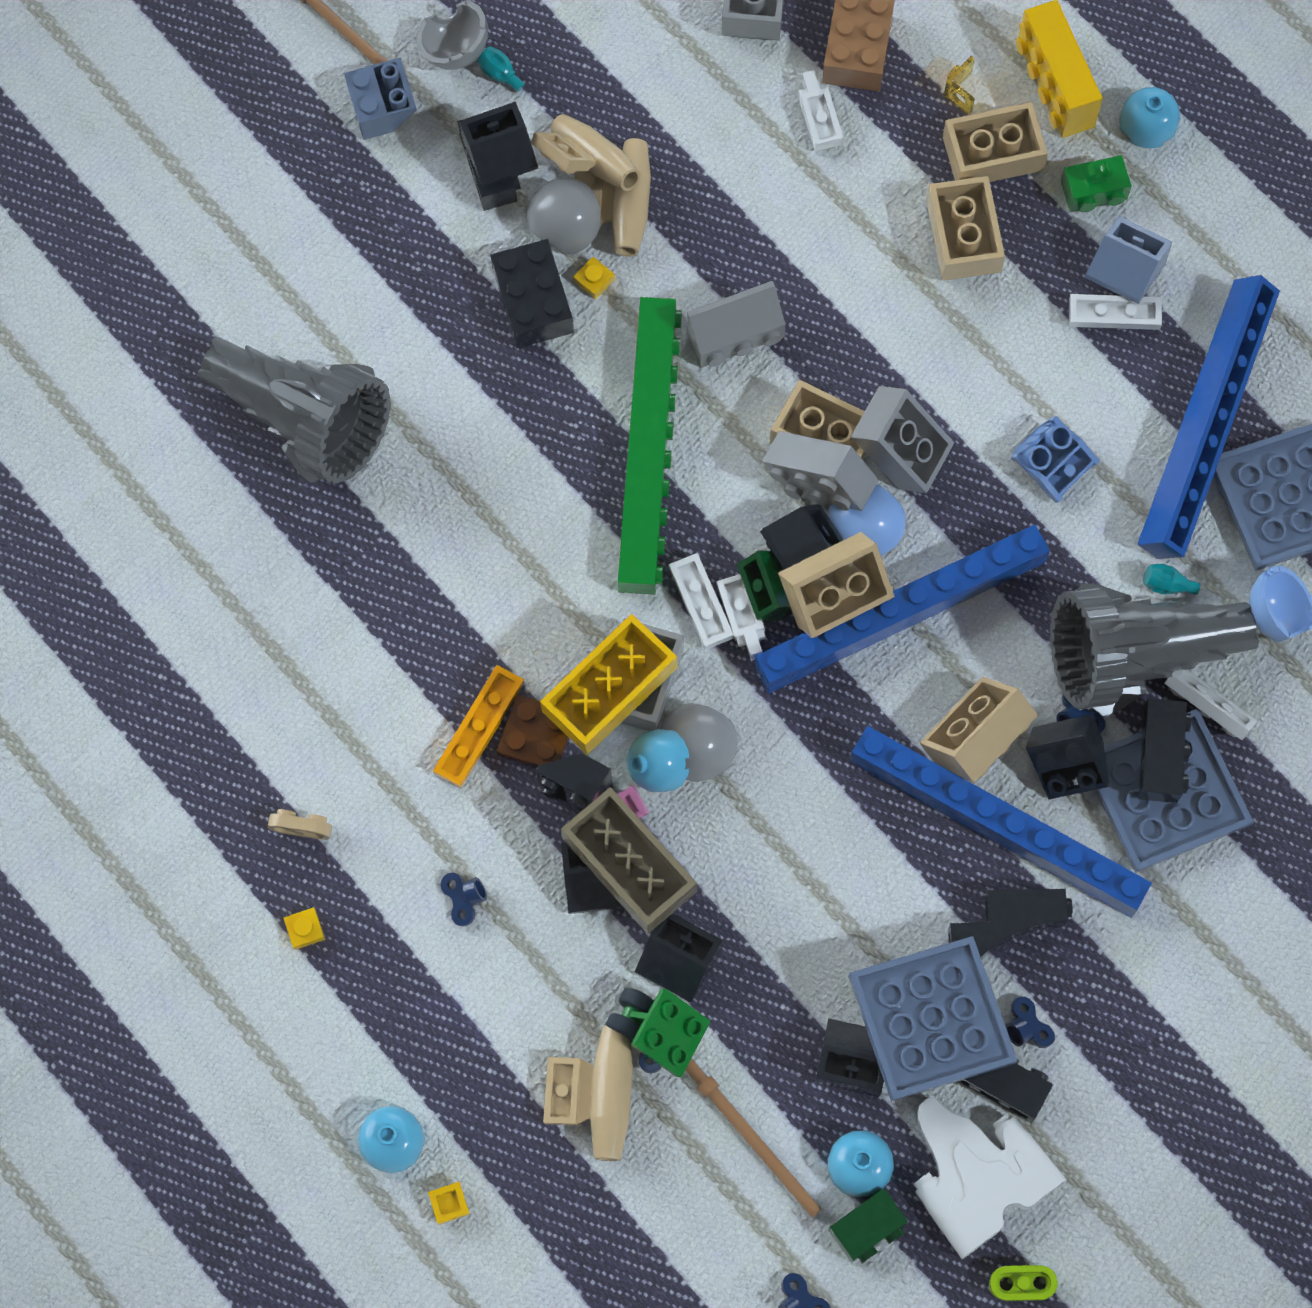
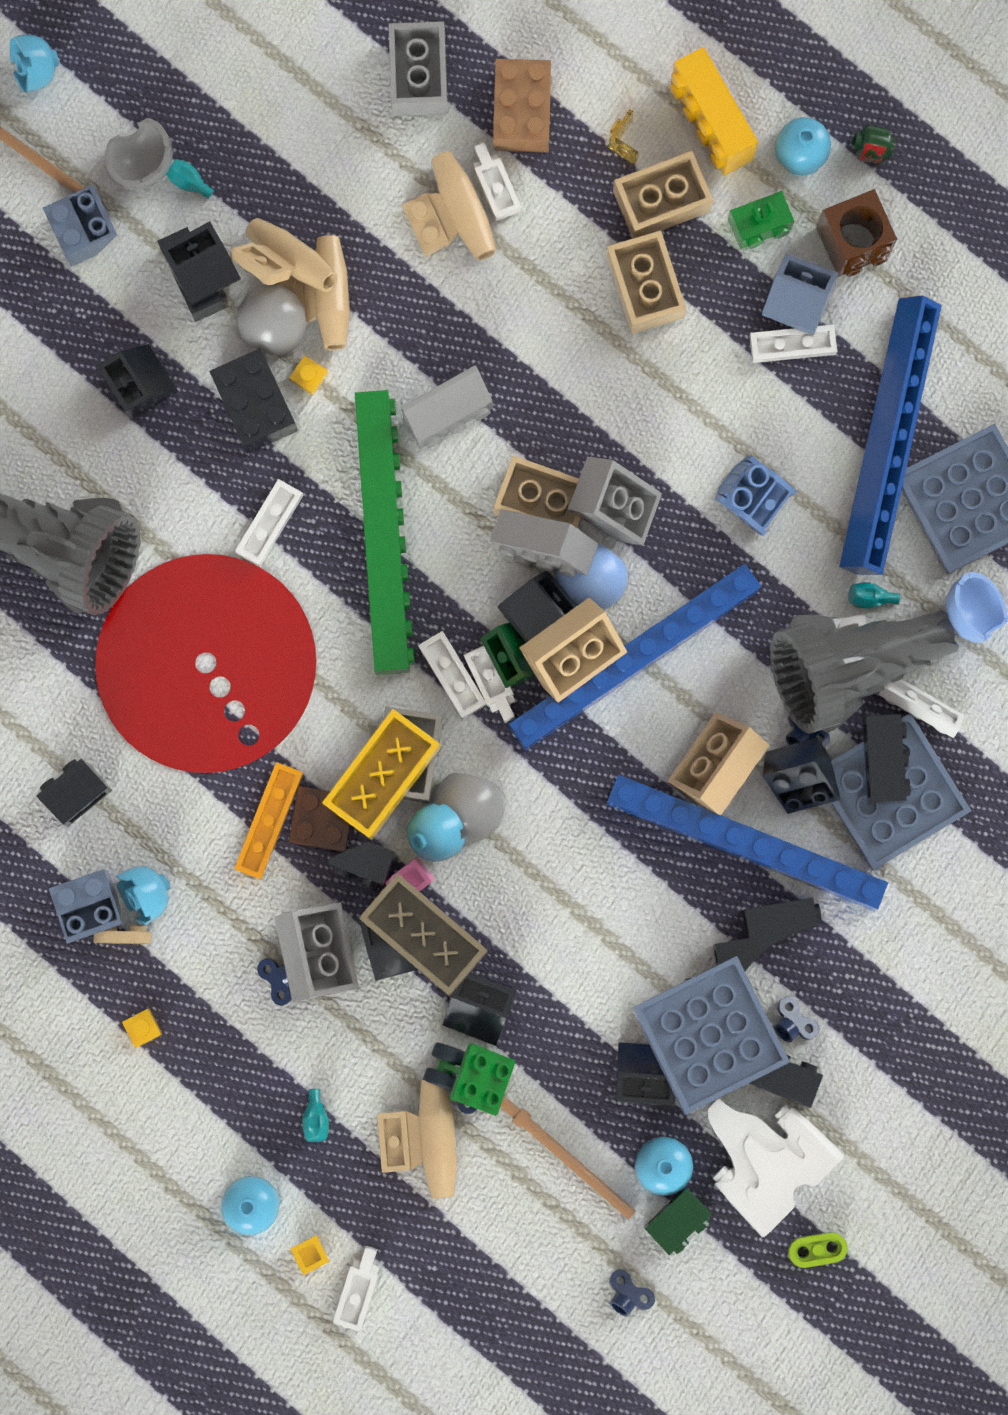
camera: 10 degrees left, 10 degrees up
(266, 784) = (87, 905): none -> sand blue slope
(273, 663) = (73, 791): none -> black slope
(331, 781) = (144, 892): none -> medium azure cylinder
(412, 256) = (137, 379): none -> black slope
(426, 496) = (192, 609): none -> red piece
(478, 1053) = (315, 1118): none -> teal piece
(495, 1252) = (357, 1292): none -> white hinge
(508, 869) = (316, 952): none -> light grey brick
(528, 419) = (269, 522): none -> white plate
(772, 133) = (452, 211): none -> tan plate
(1199, 185) = (863, 211): none -> reddish brown brick
(1225, 124) = (873, 144): none -> dark green head

